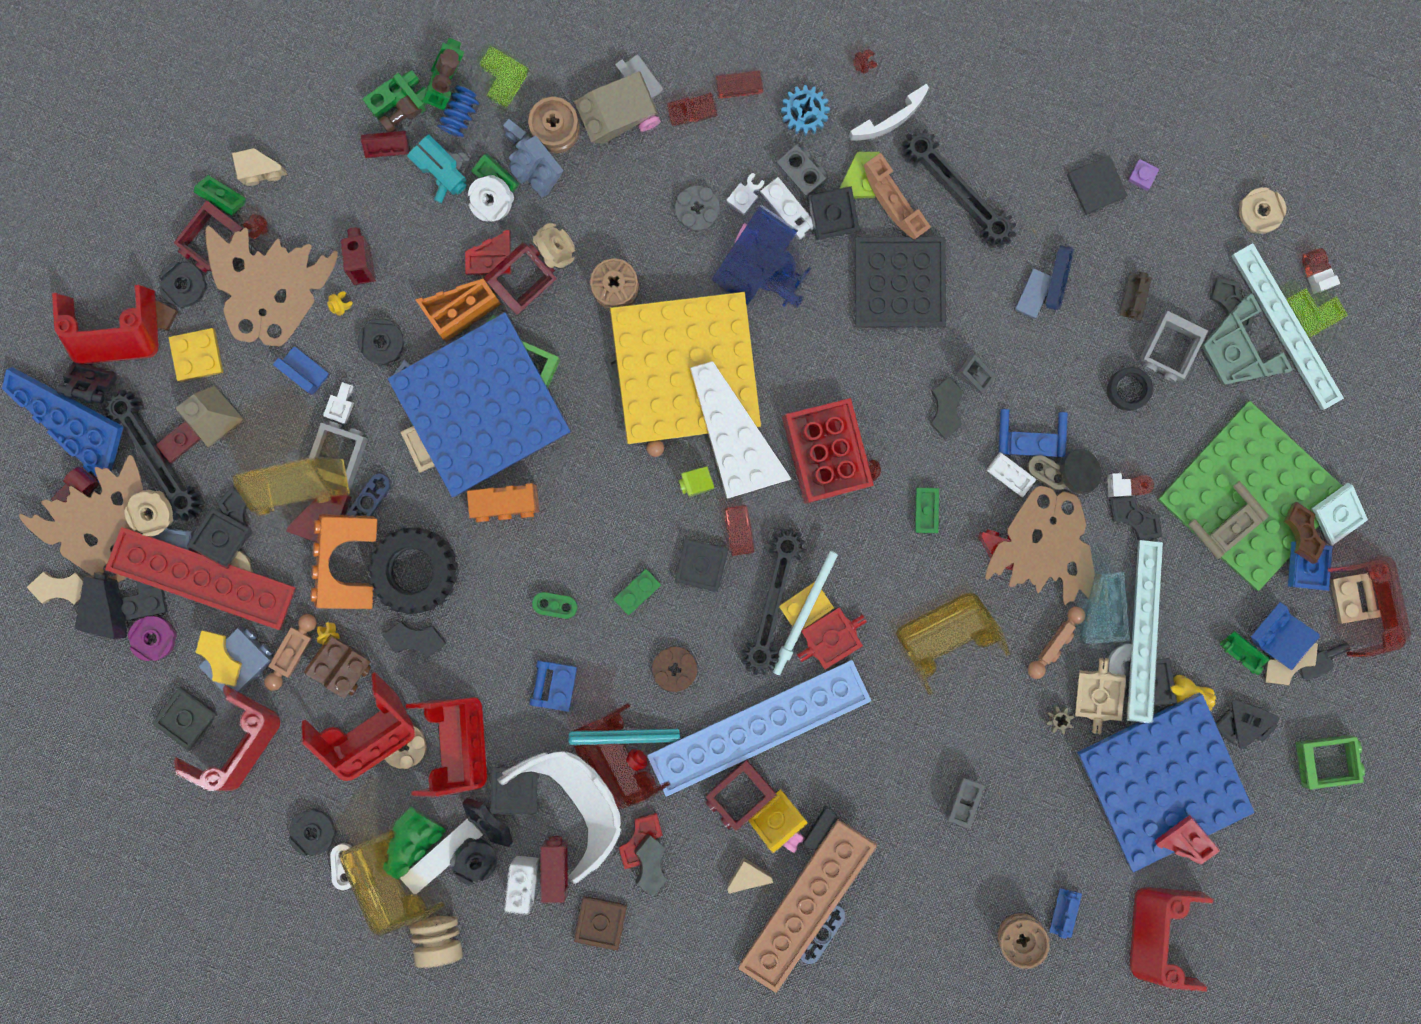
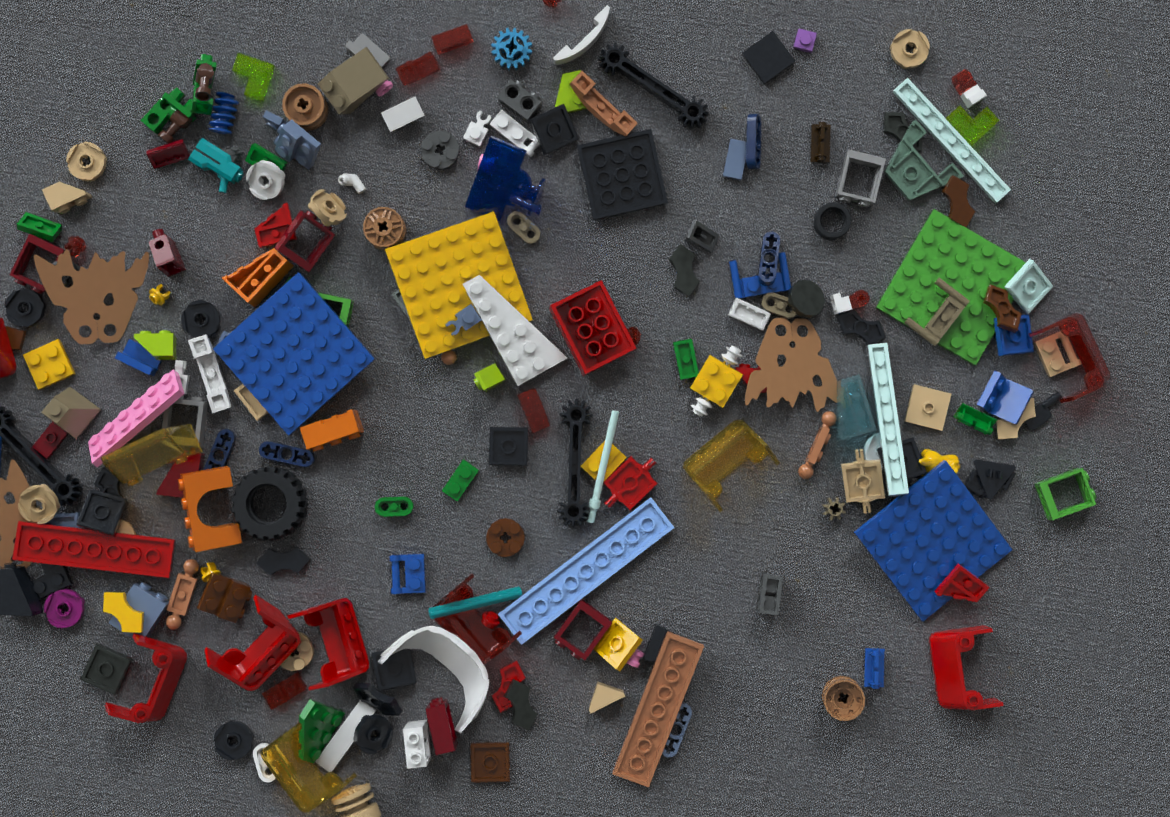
camera: 10 degrees left, 0 degrees up
(277, 133) = (91, 171): none -> tan plate
(282, 438) = (136, 417): none -> bright pink plate
(327, 361) = (159, 345): none -> lime slope
(379, 406) = (211, 373): none -> white slope
(383, 788) = (284, 690): none -> clear red slope
(427, 516) = (300, 462): none -> dark blue beam
(588, 220) = (352, 180): none -> white arm
(664, 157) = (402, 114): none -> white hinge
(685, 408) = (465, 318): none -> sand blue plate
(774, 318) = (524, 227): none -> dark tan plate
(957, 543) = (716, 381): none -> yellow plate
(1041, 422) = (766, 251): none -> dark blue beam
(1192, 627) = (927, 407): none -> tan plate
(1280, 389) = (956, 193): none -> reddish brown tile

